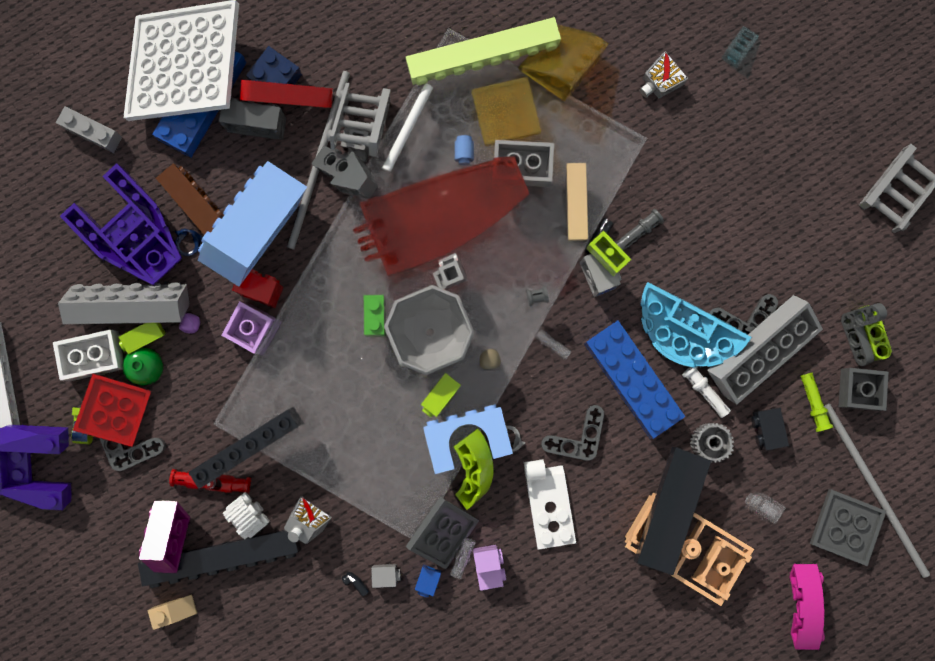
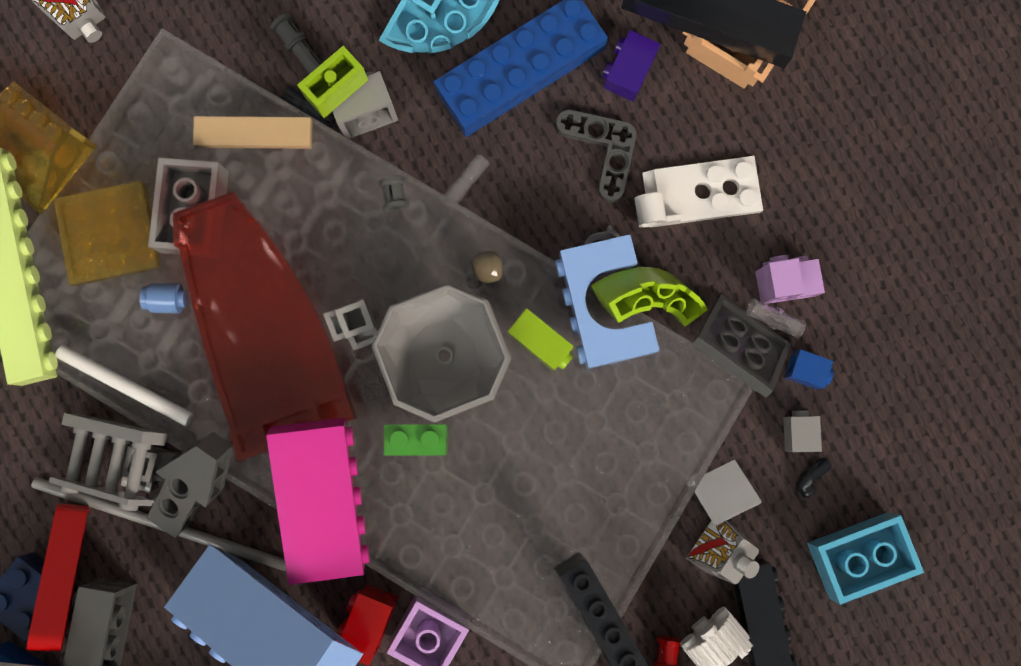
camera: 85 degrees left, 0 degrees up
(302, 617) = (865, 557): none -> medium azure brick
(334, 254) = (318, 500): none -> dark pink brick
(344, 523) = (726, 493): none -> white sticker
(636, 456) = (631, 65): none -> dark purple brick

